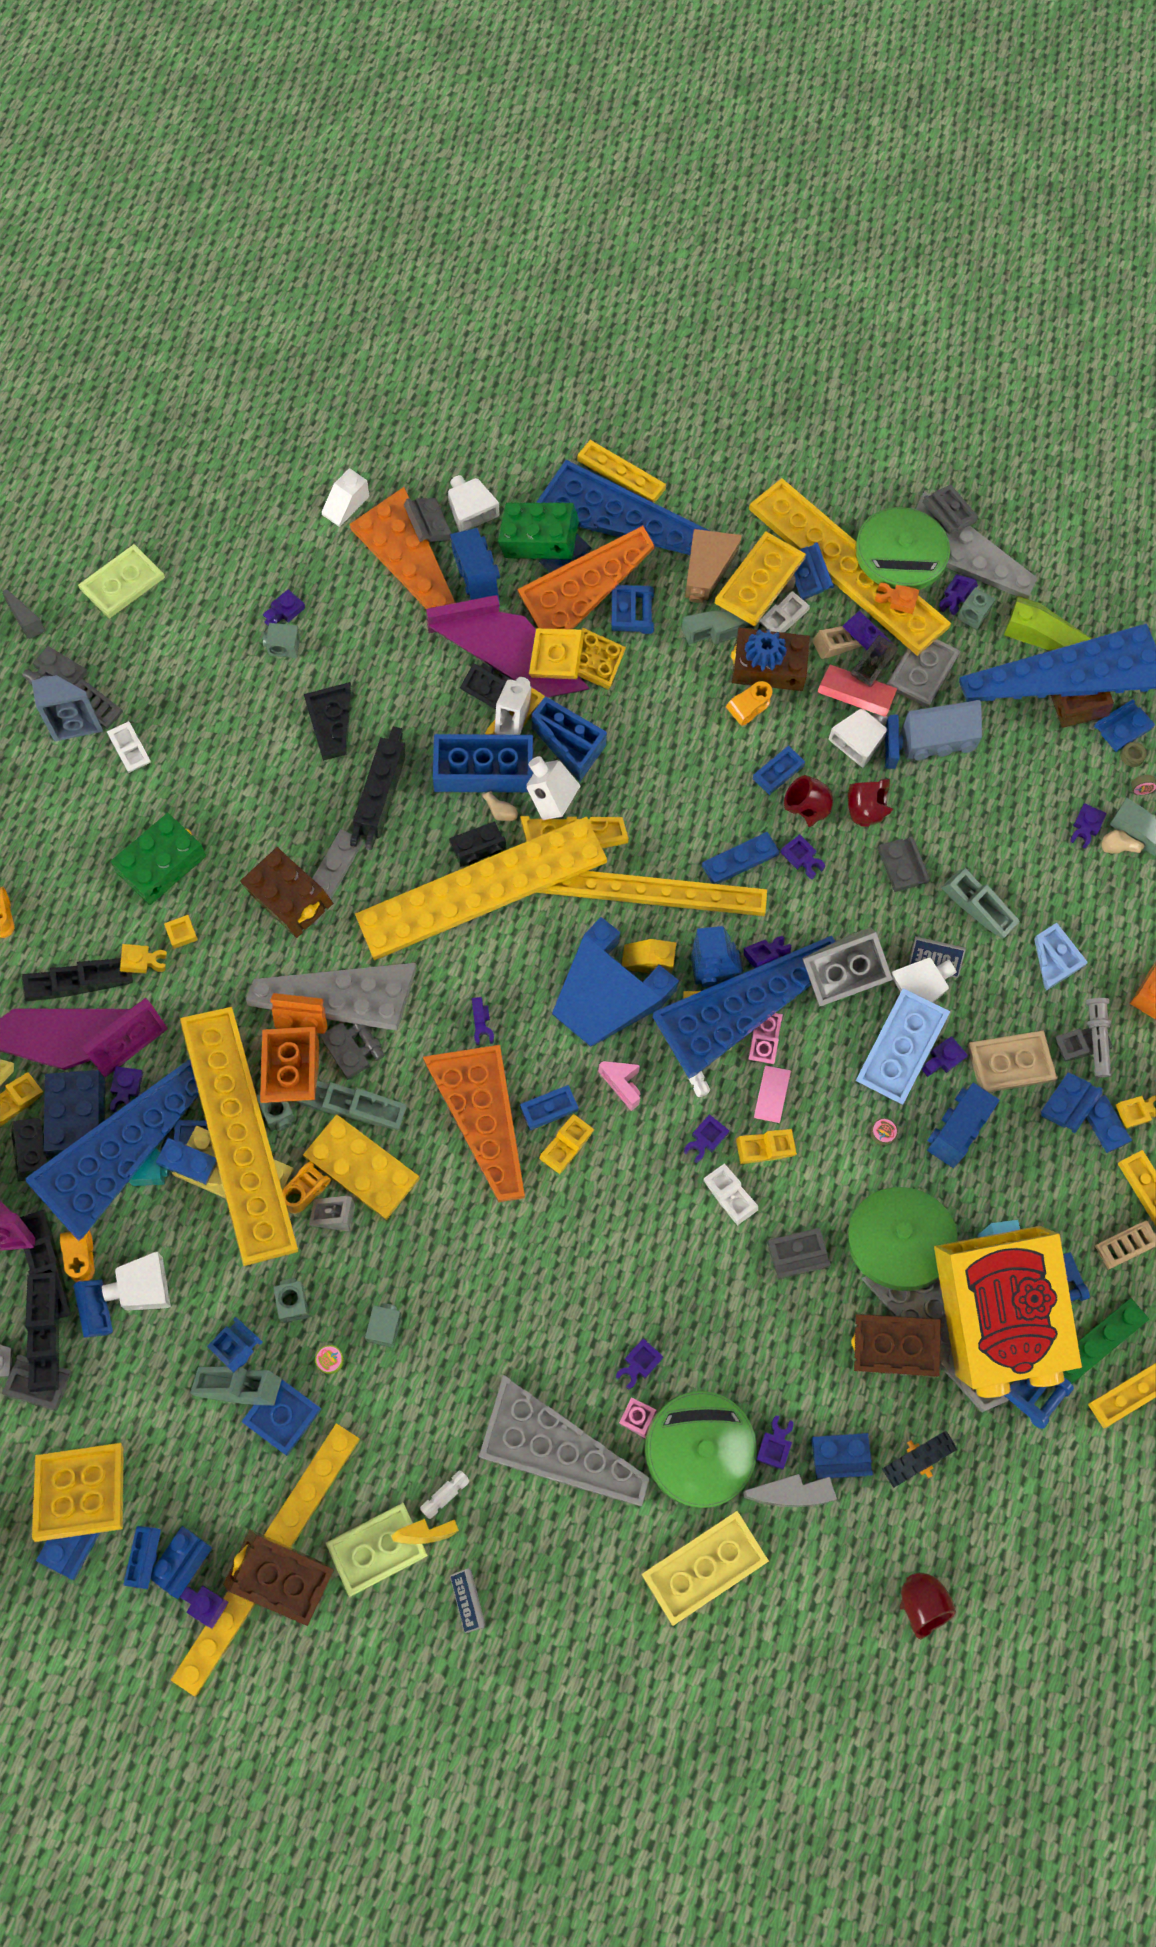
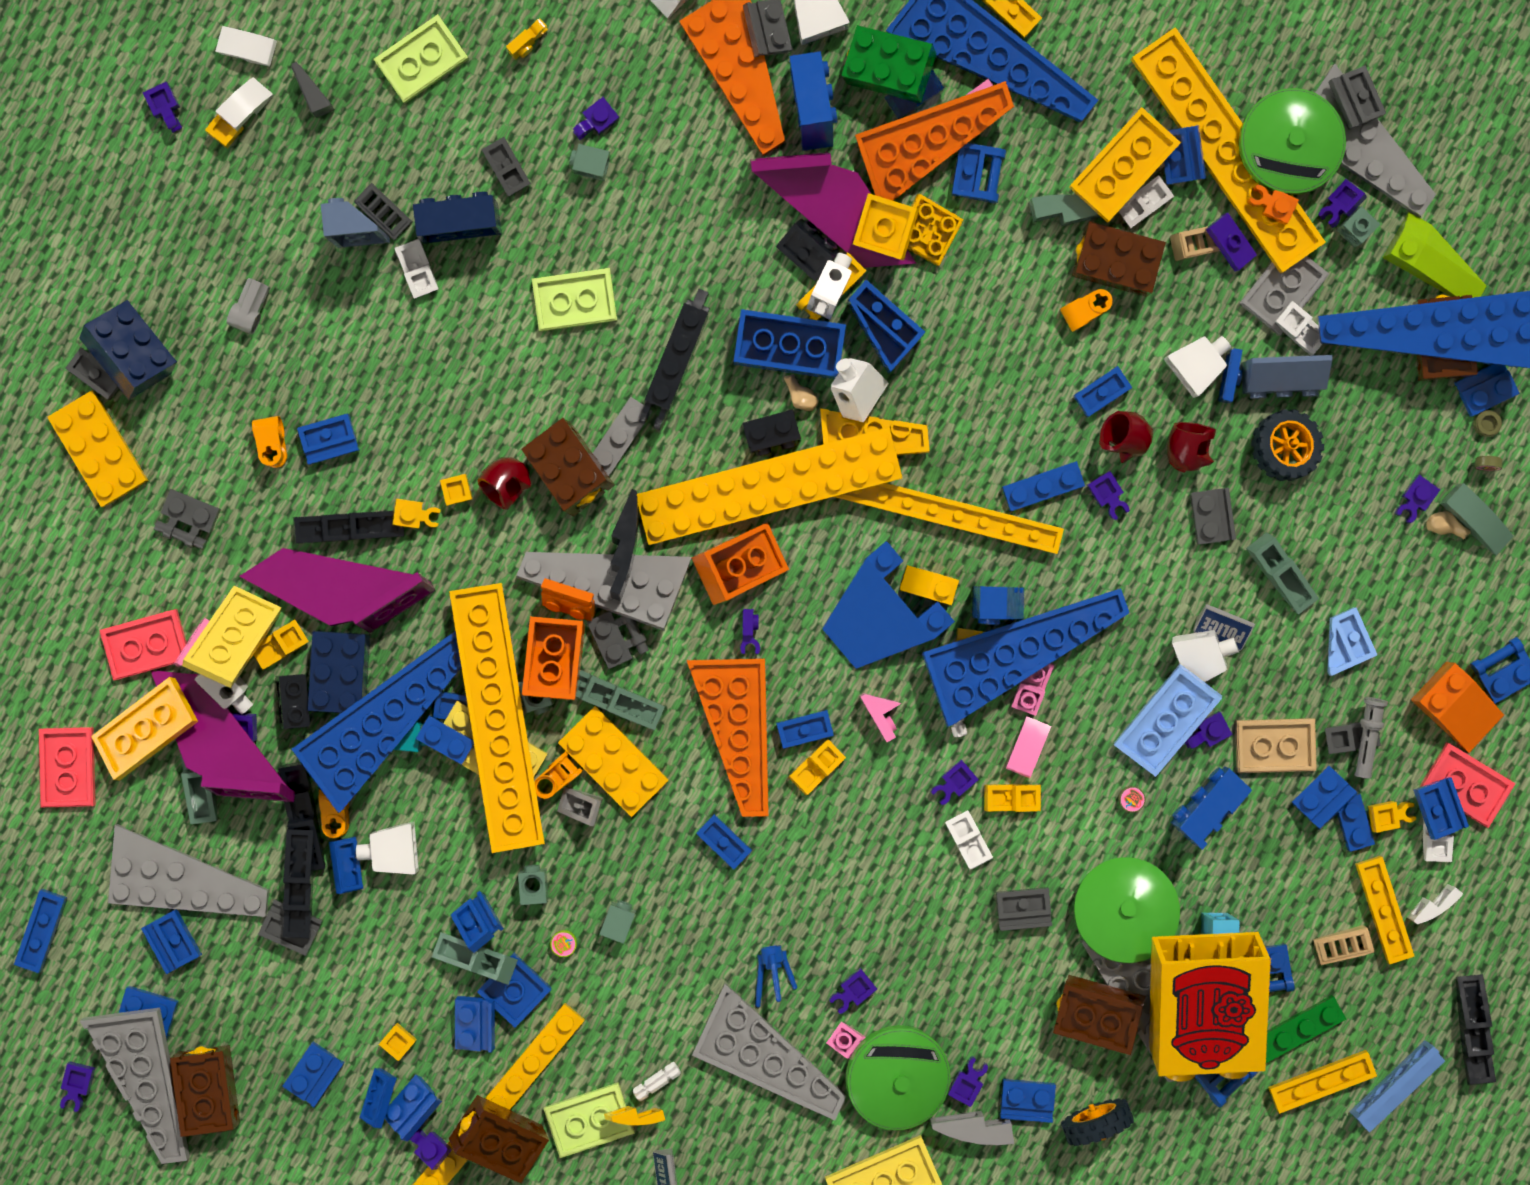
camera: 10 degrees right, 20 degrees up
(53, 903) = (328, 439): none -> blue plate
(54, 663) = (348, 161): dark grey plate -> none
(78, 1492) = (324, 1034): yellow plate -> none
(125, 1084) = (390, 644): dark purple plate -> none
(158, 858) = (439, 406): green piece -> none
(160, 1491) = (397, 1041): none -> yellow plate
(162, 695) = (457, 218): none -> dark blue brick
(205, 654) = (506, 166): none -> dark grey slope
(212, 554) = (523, 43): none -> yellow plate
(225, 915) = (504, 481): none -> dark red piece
(242, 1458) = (474, 1024): none -> blue plate
(279, 756) = (574, 299): none -> yellowish green tile
(330, 718) = (632, 264): black wing -> none
(349, 955) = (625, 537): none -> black slope
(462, 962) = (740, 563): none -> orange slope
(483, 1229) = (724, 841): none -> blue plate
(550, 1342) = (772, 958): none -> blue plant
(708, 562) = (1070, 138): medium nougat slope -> none
(763, 952) = (1048, 598): dark purple plate -> none
(765, 649) = (1103, 258): blue gear -> none
(844, 687) = (1205, 310): coral tile -> none
(847, 967) = (1129, 629): light grey slope -> none
(875, 661) = (1230, 281): clear smoke slope -> none
(940, 691) = (1300, 328): none -> white slope
(962, 781) = (1310, 444): none -> black wheel

